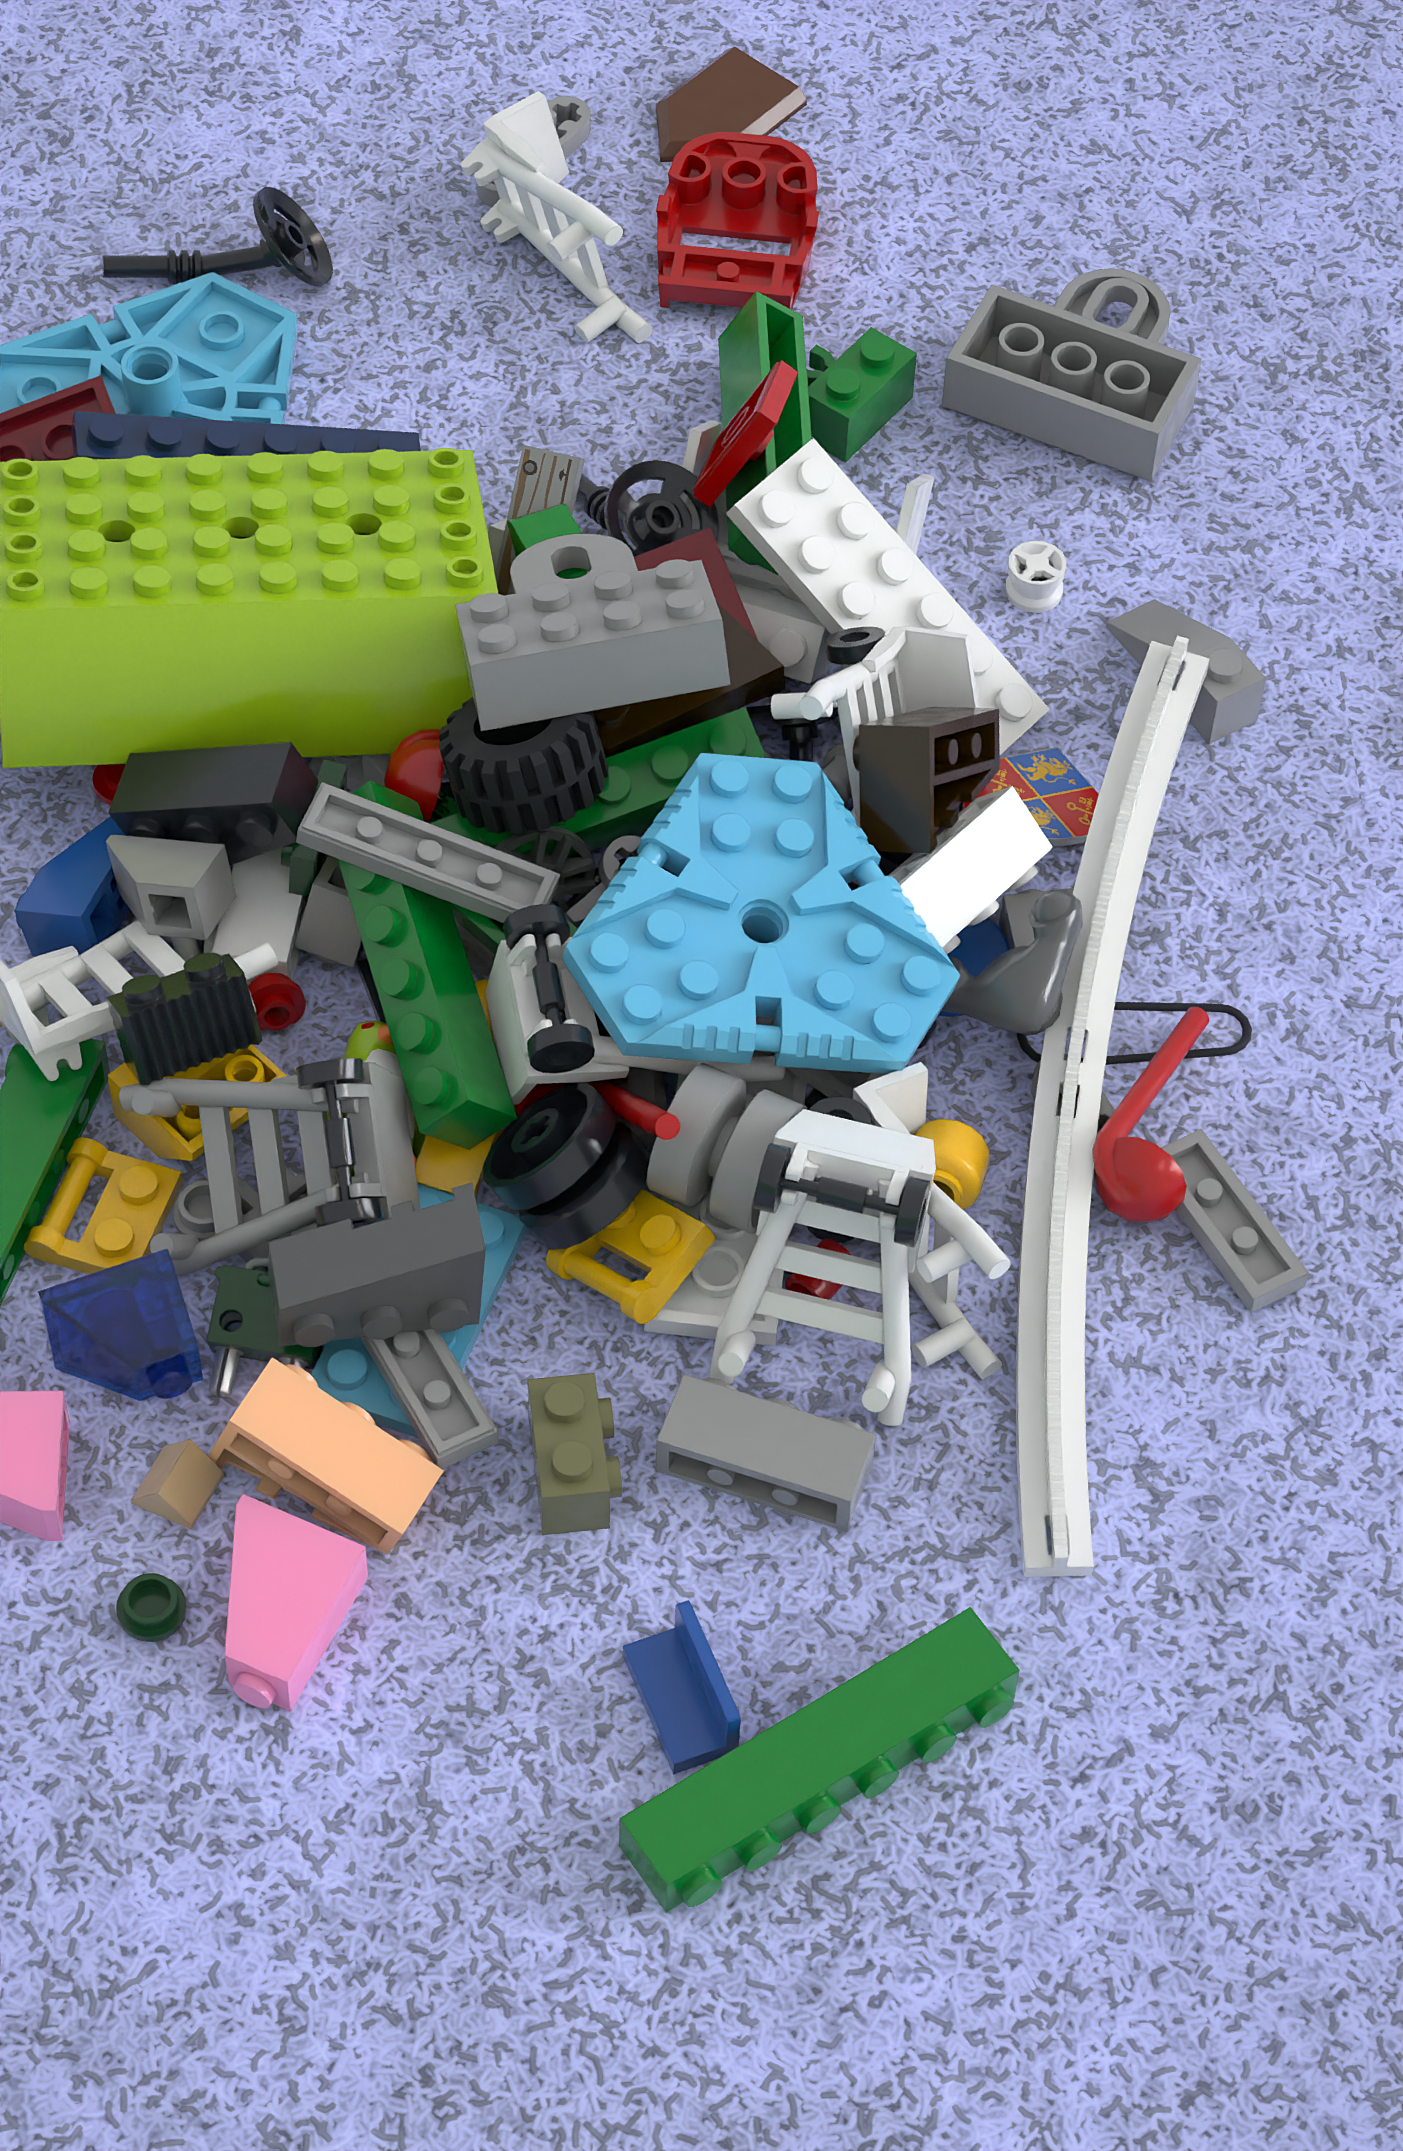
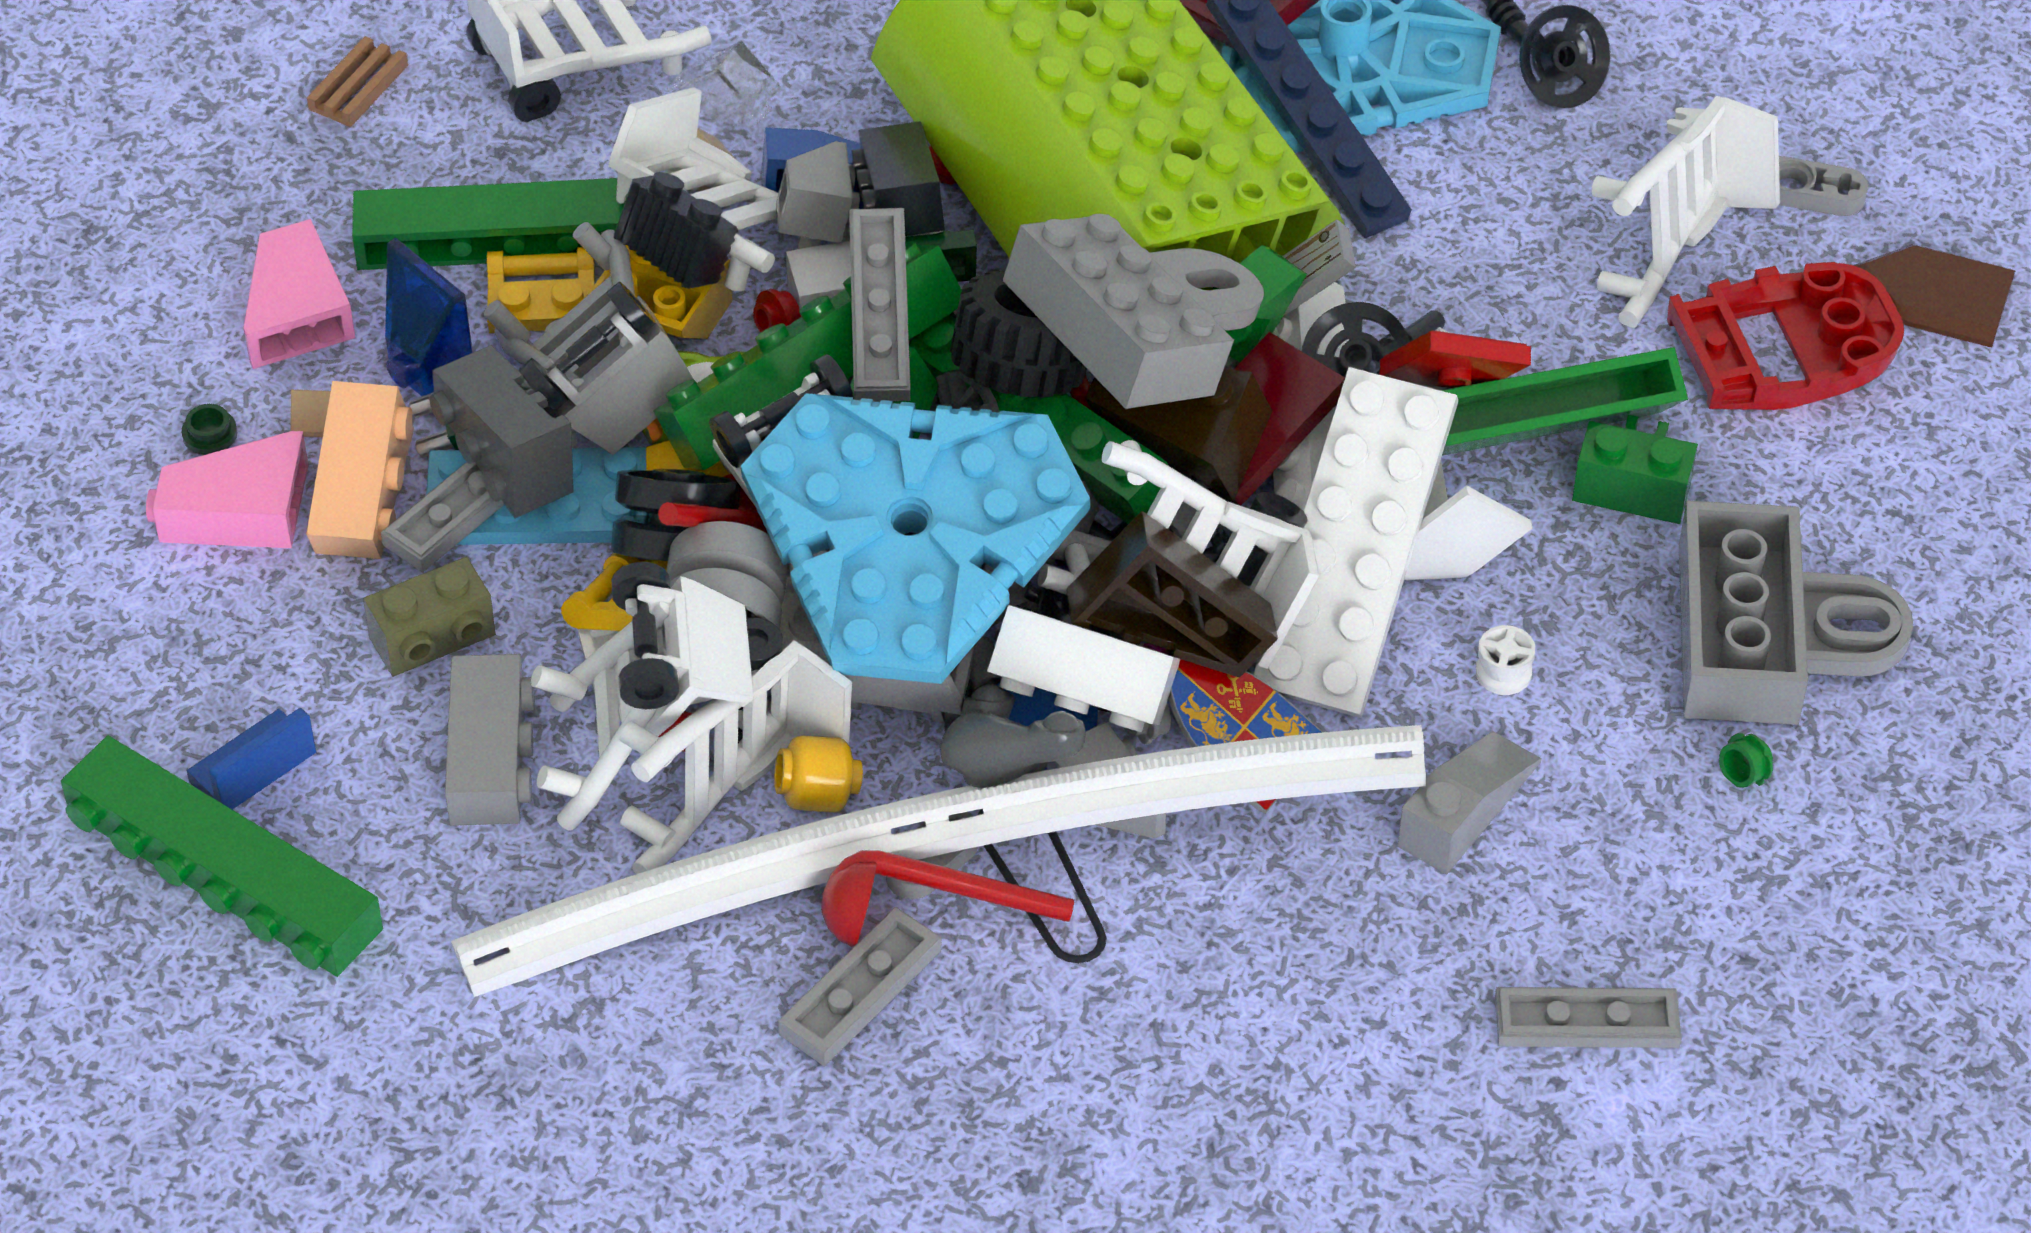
camera: 70 degrees right, 5 degrees down
(1230, 450) = (1746, 760): none -> green plate

